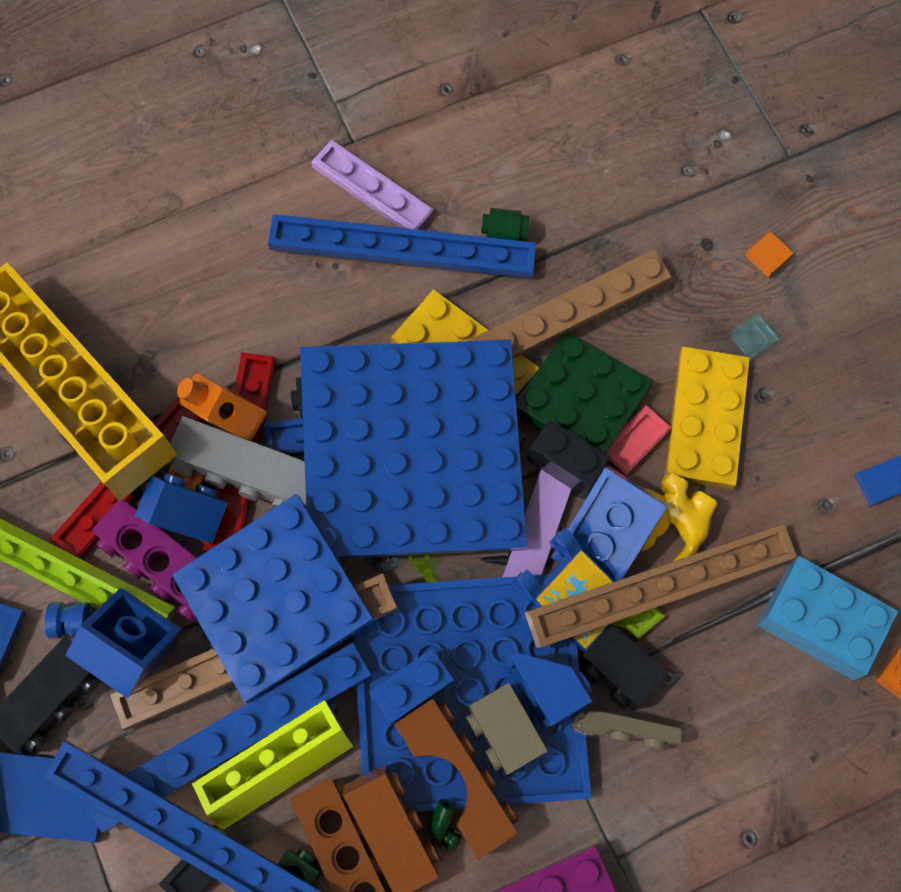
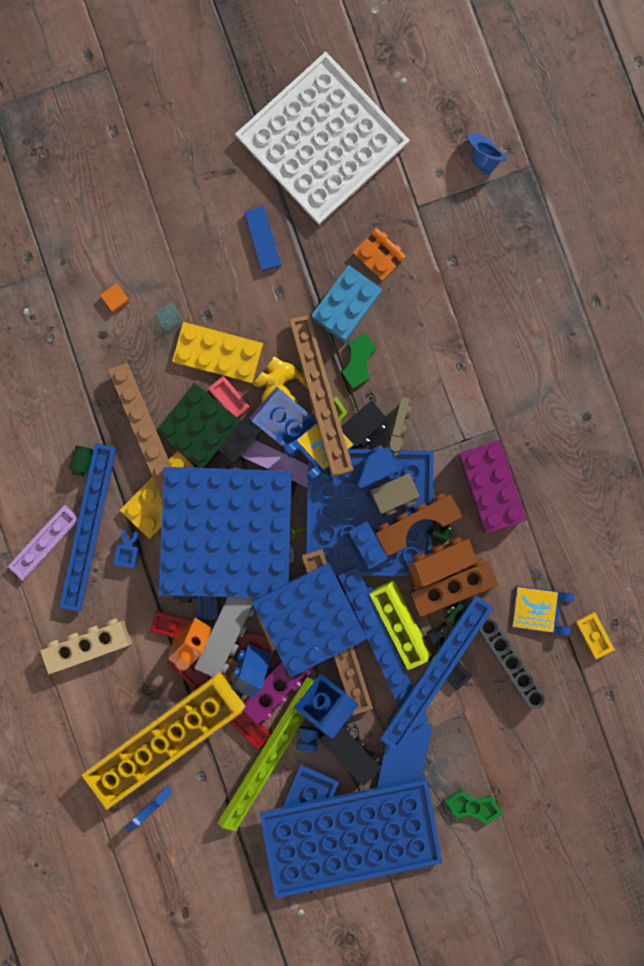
camera: 80 degrees left, 15 degrees up
(189, 217) = (56, 661): none -> tan brick
(258, 838) = (438, 635): none -> black wheel
(364, 305) = (127, 554): none -> blue plate
(748, 653) = (361, 350): none -> green tile

